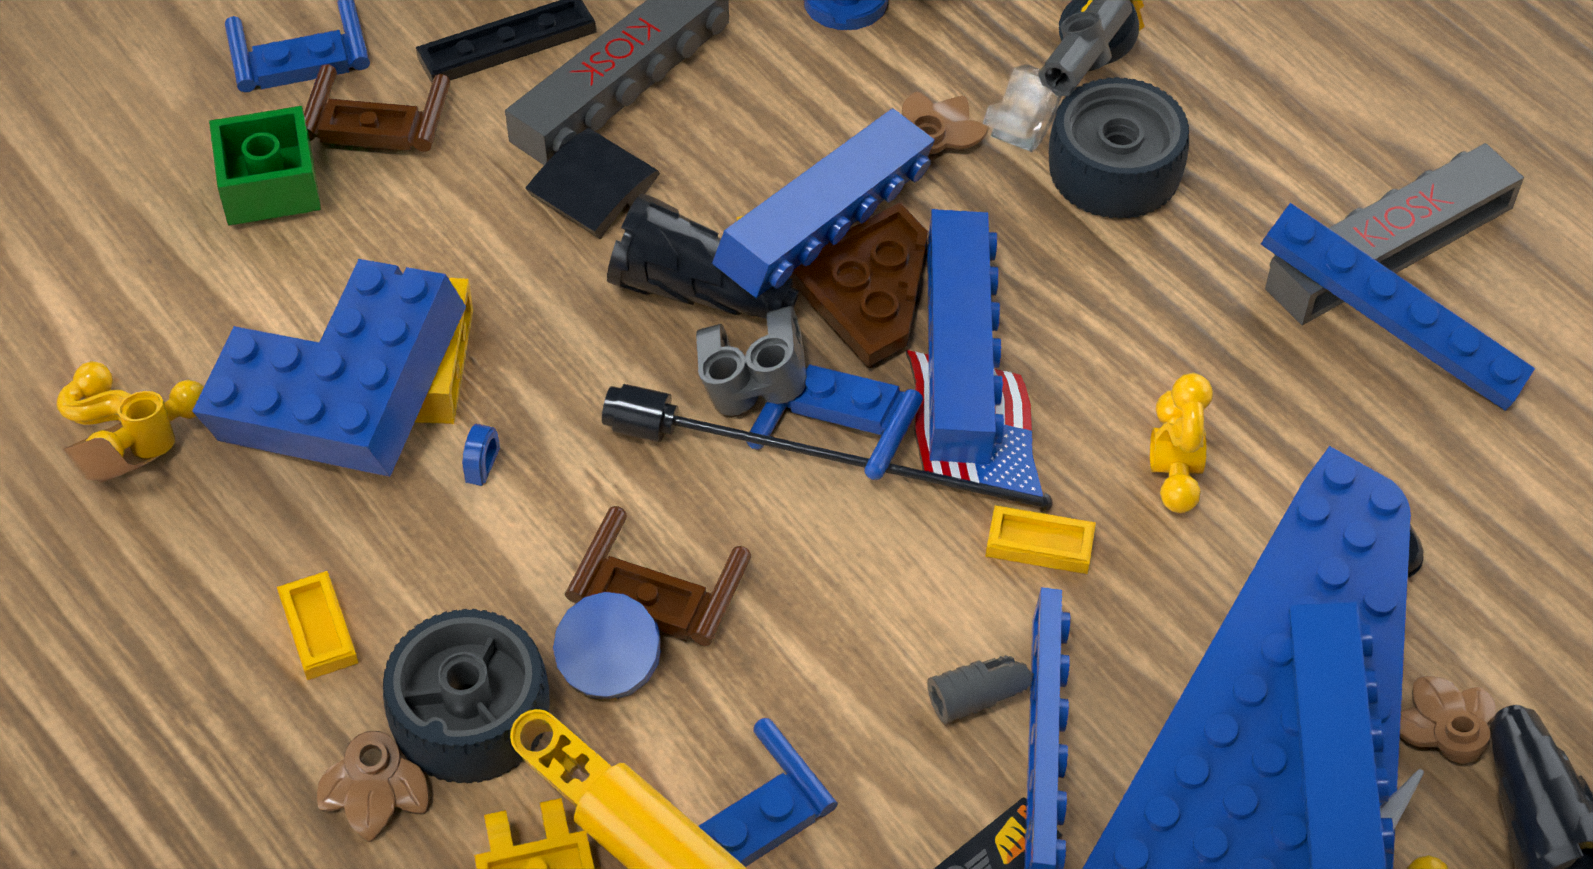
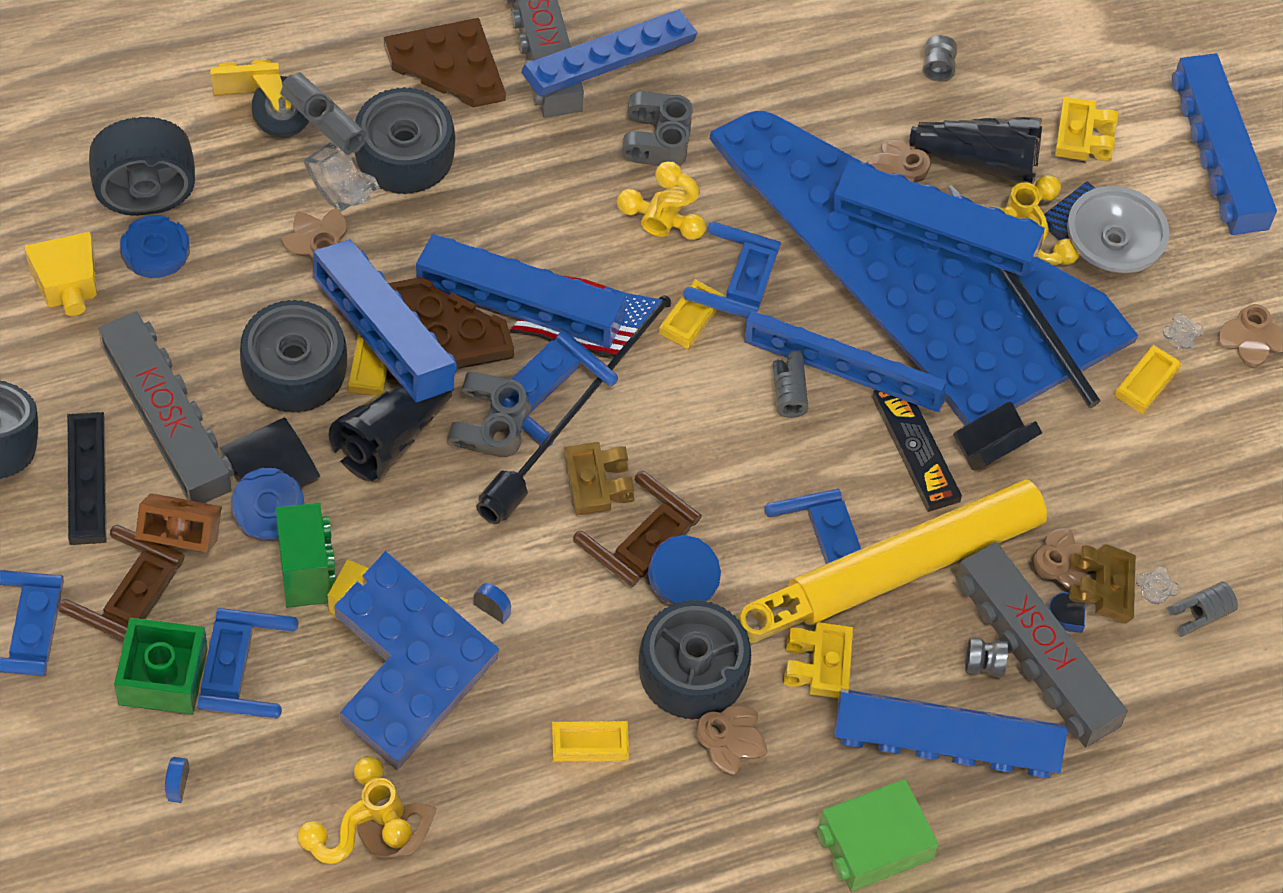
camera: 75 degrees left, 5 degrees up
(133, 232) = (176, 779): none -> blue tile
(300, 230) = (228, 660): none -> blue plate
(459, 230) = (305, 554): none -> green brick
(463, 120) = (178, 522): none -> dark orange brick
(529, 193) = (257, 498): none -> blue tile
(712, 496) = (588, 479): none -> pearl gold plate
(739, 143) = (293, 355): none -> wheel
(1134, 582) = (749, 275): none -> blue plate
(1285, 162) = (449, 59): none -> reddish brown plate
(1304, 422) = (673, 122): none -> dark grey piece

